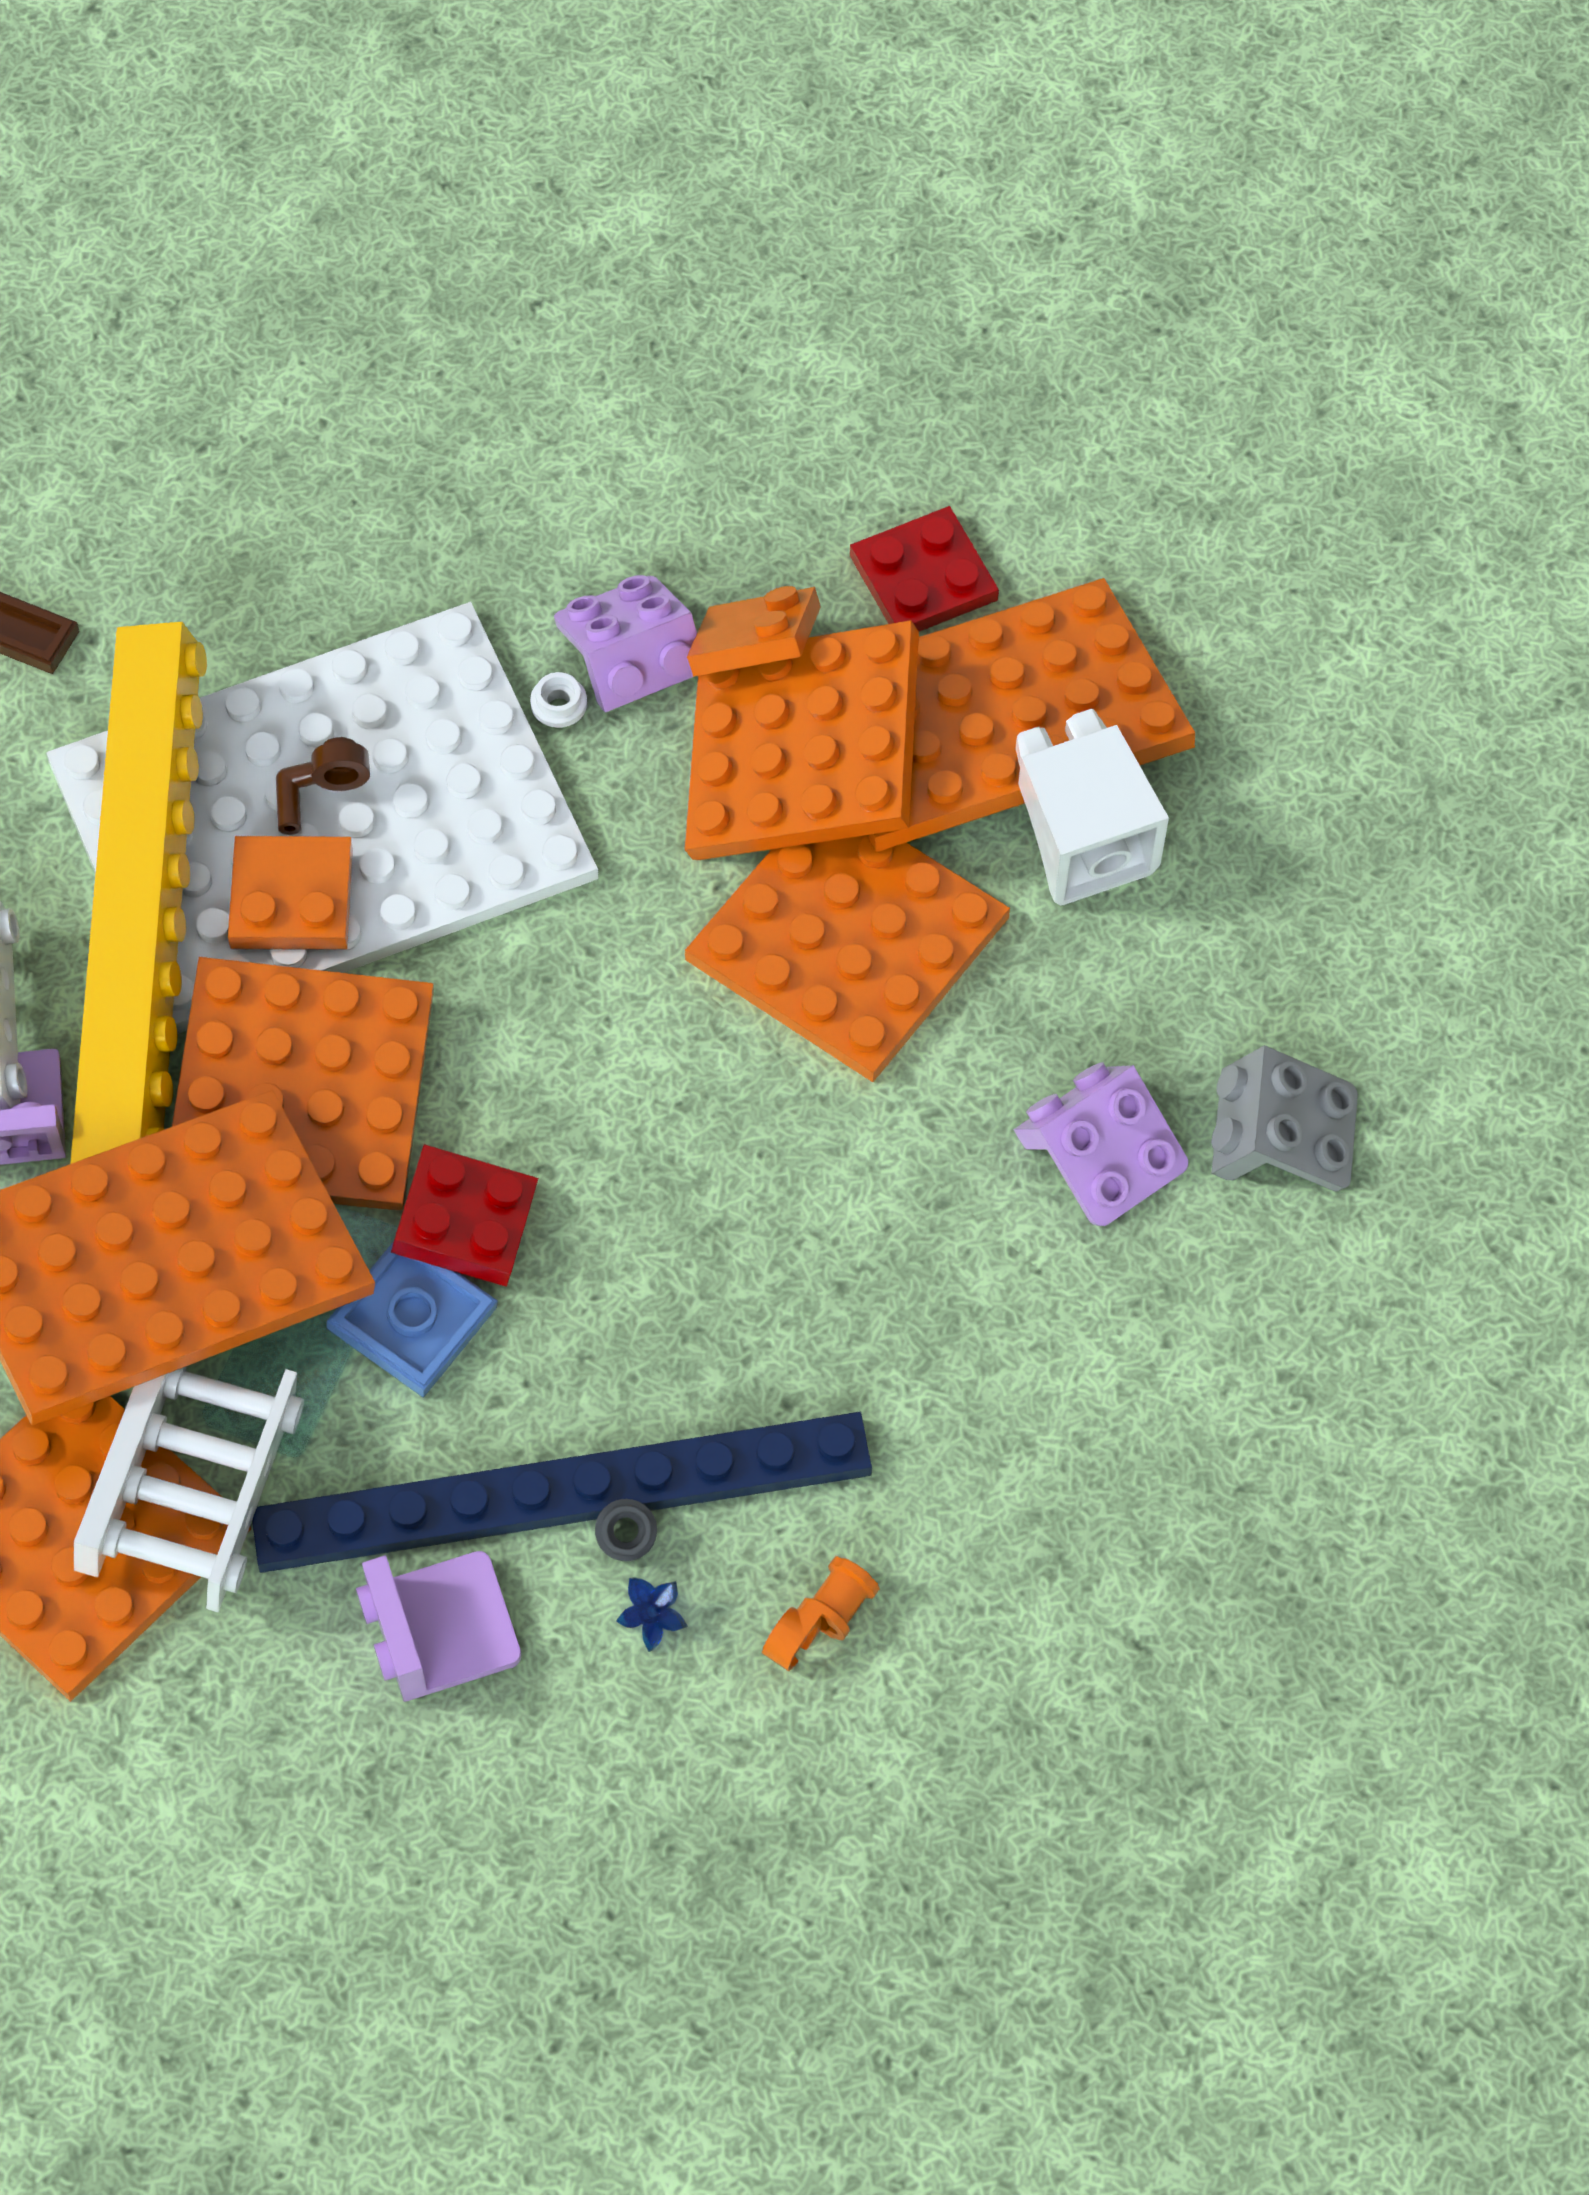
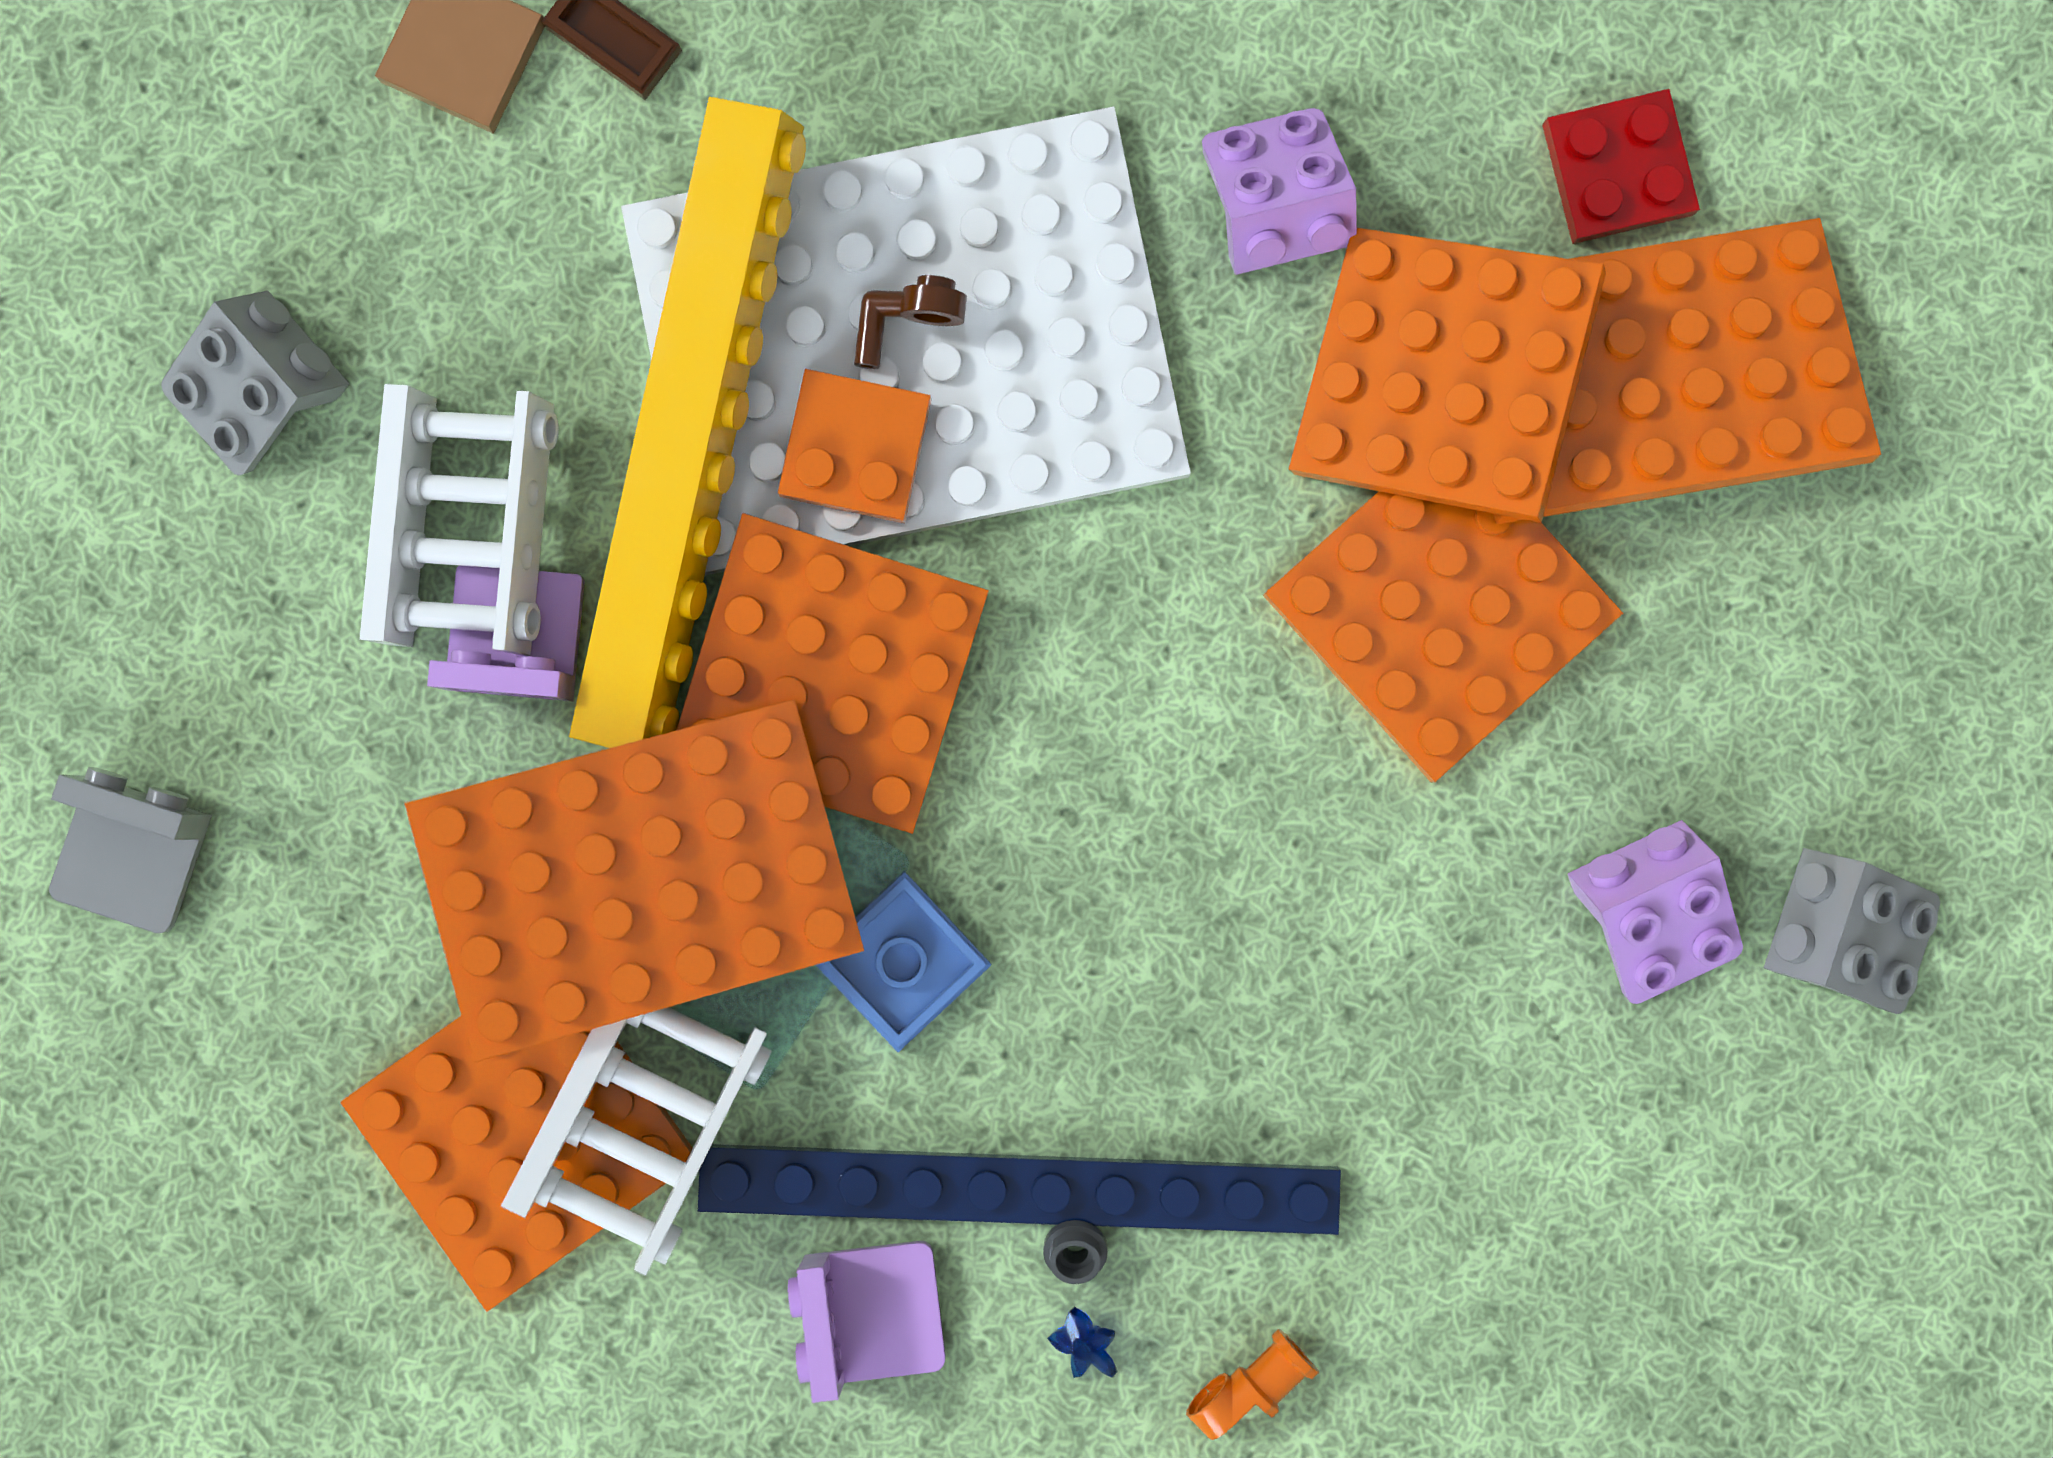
camera: 15 degrees right, 25 degrees up
(464, 1215) = (974, 865): red plate -> none
(558, 686) = (1187, 232): white plate -> none
(754, 631) = (1421, 222): orange plate -> none
(1089, 808) = (1745, 525): white hips -> none

